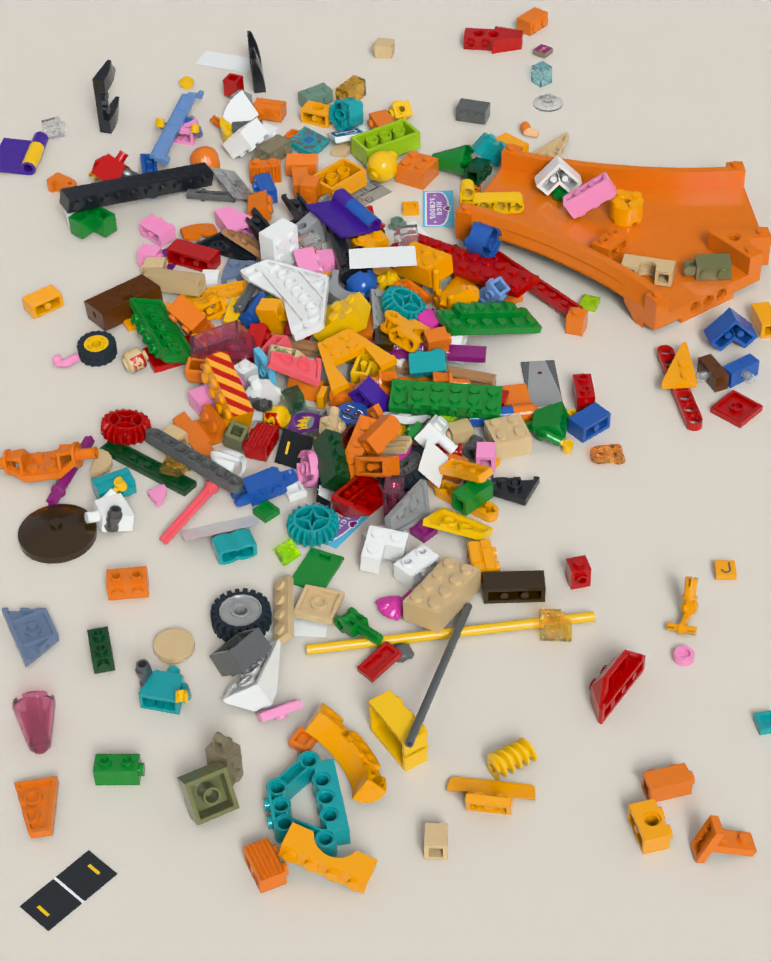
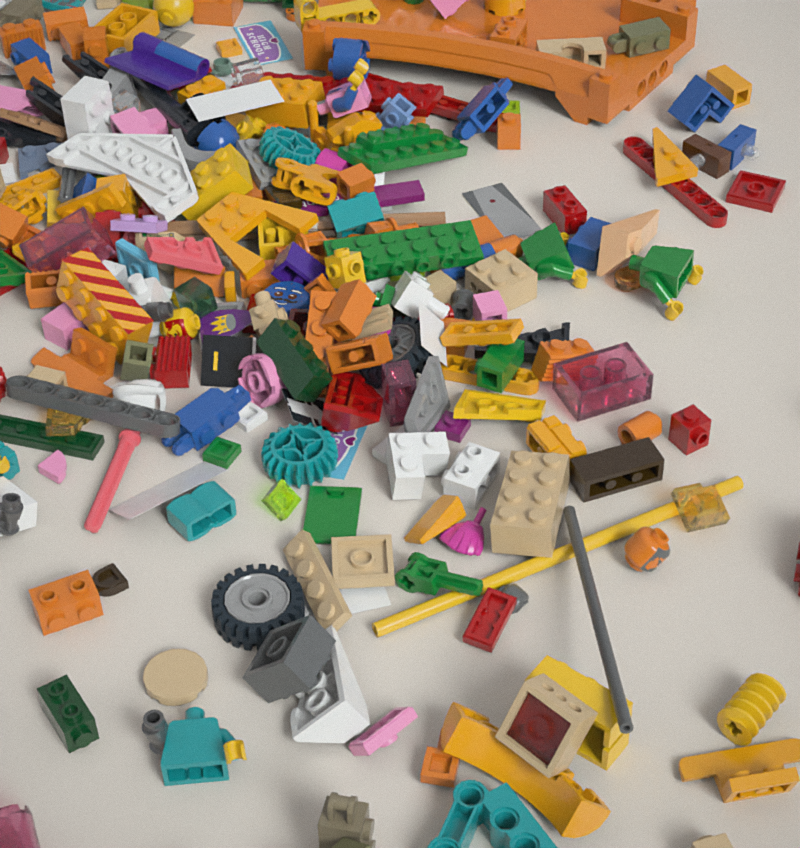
camera: 20 degrees left, 0 degrees up
(160, 577) = (109, 581): none -> dark brown tile
(254, 315) = (95, 201): none -> light orange plate
(279, 340) = (148, 224): none -> lavender plate
(367, 730) = (546, 725): none -> tan piece
(383, 588) = (441, 516): none -> light orange slope
(394, 402) = (344, 267): none -> yellow brick
(466, 270) = (349, 96): none -> torso
(502, 643) = (647, 549): none -> orange head
(517, 503) = (554, 352): none -> orange brick
(536, 524) = (602, 381): none -> clear pink brick
(548, 562) = (640, 427): none -> orange brick
(561, 301) = (482, 110): none -> blue hinge
(611, 424) = (625, 239): none -> light nougat wedge
(624, 456) = (665, 274): none -> green torso

